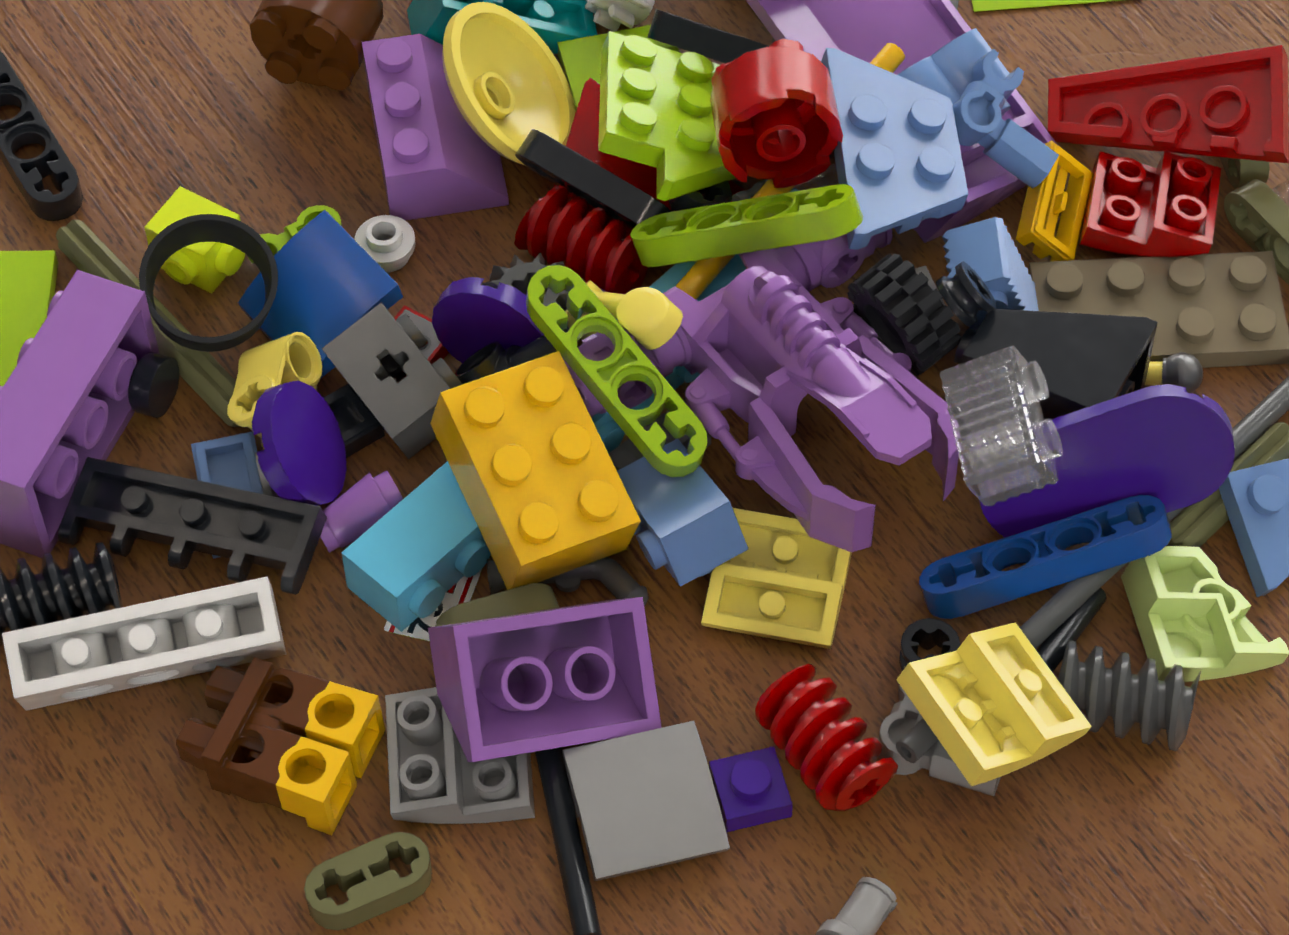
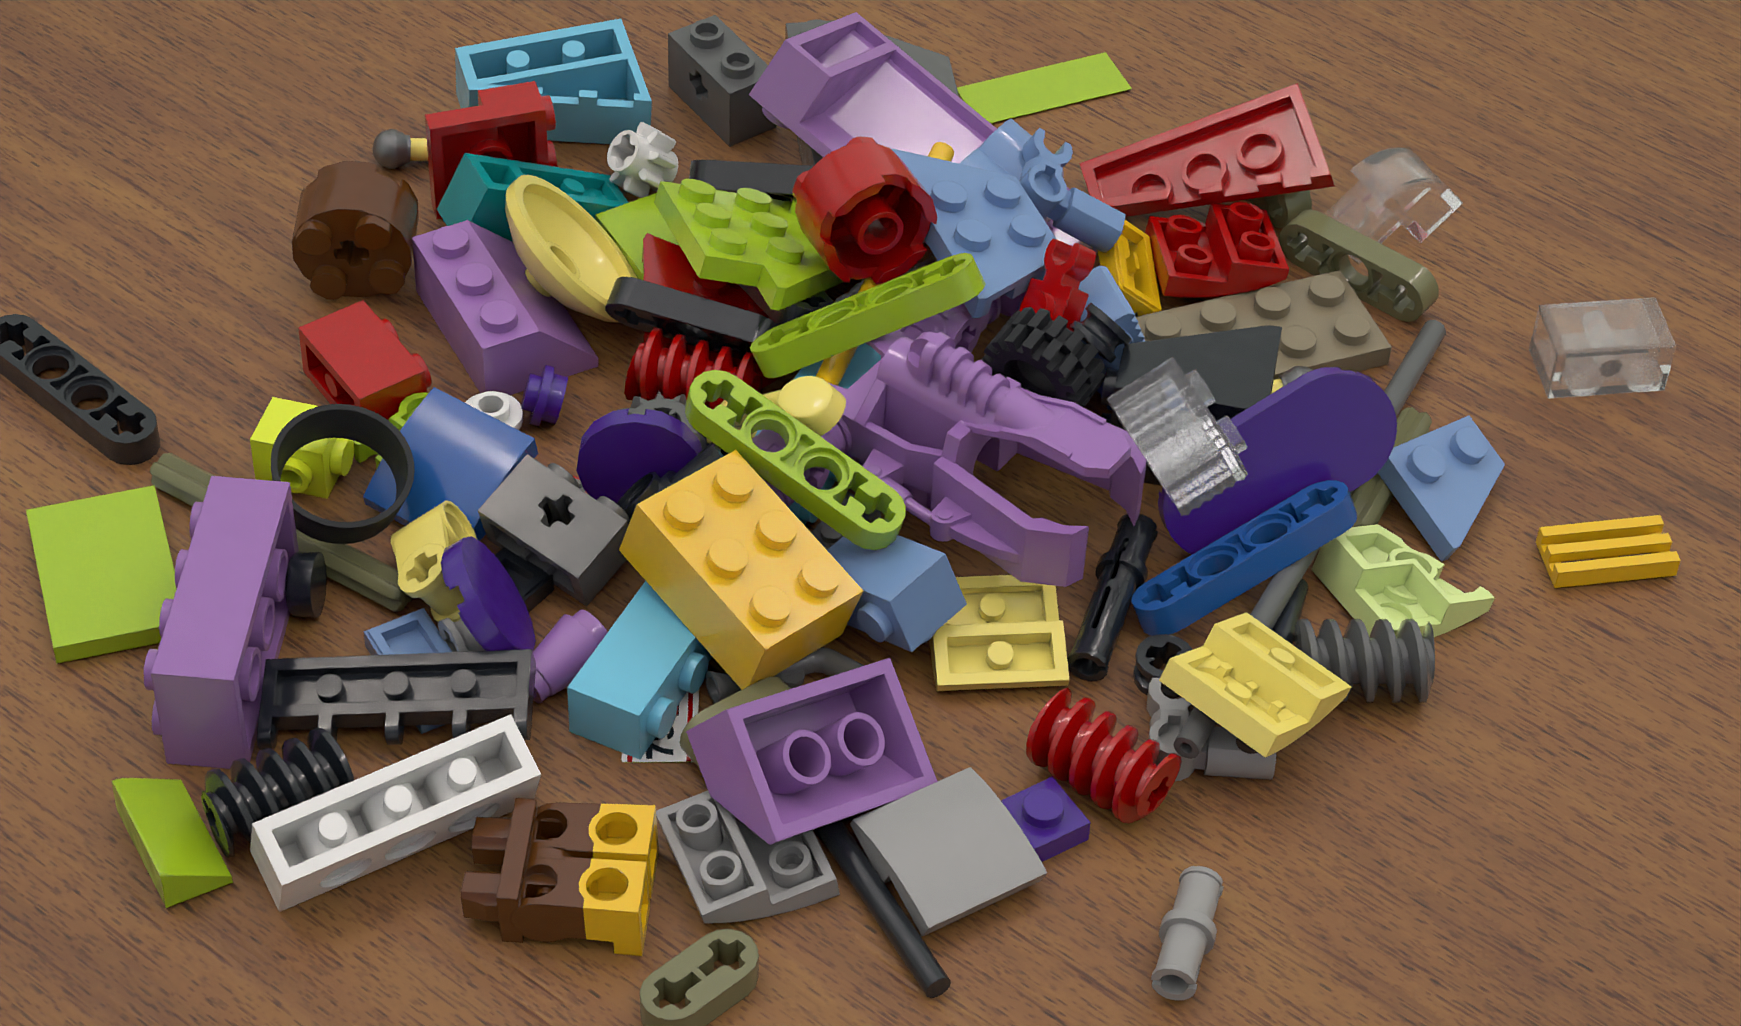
camera: 20 degrees left, 10 degrees down
(281, 164) = (361, 360): none -> red brick
(438, 231) = (544, 396): none -> dark purple plate
(920, 544) = (1118, 577): none -> black pin
(937, 244) = (1059, 288): none -> red plate

